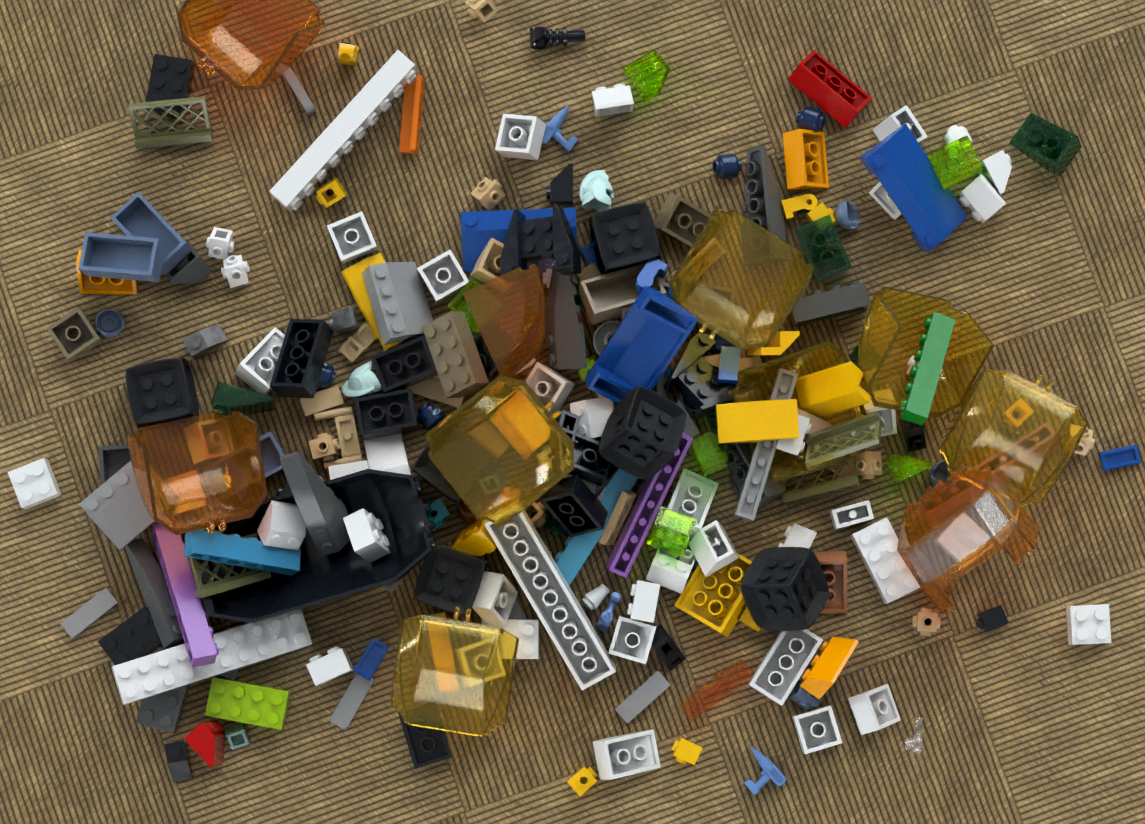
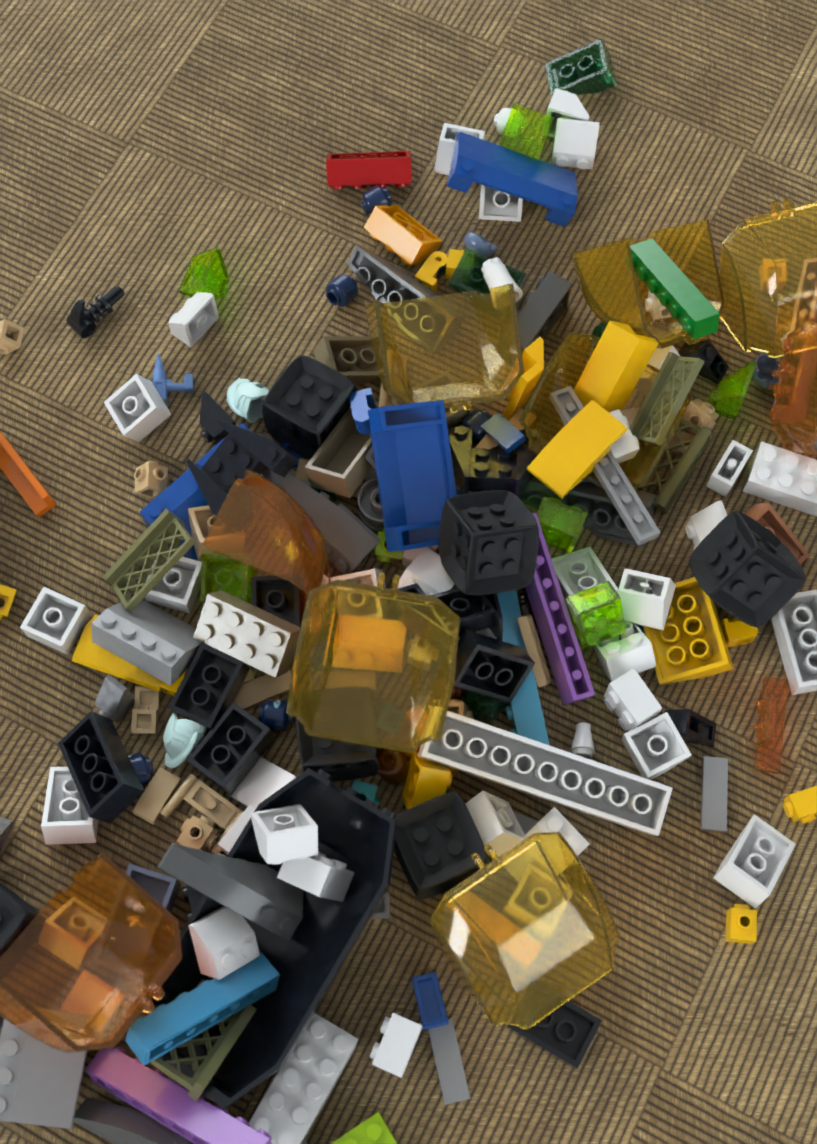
camera: 40 degrees left, 15 degrees down
(233, 398) = (59, 865): clear green slope -> none
(366, 499) = (285, 834): none -> white slope
(439, 242) = (138, 558): none -> olive fence
(606, 617) = (612, 750): medium blue piece -> none
(825, 261) = (497, 275): none -> white plant

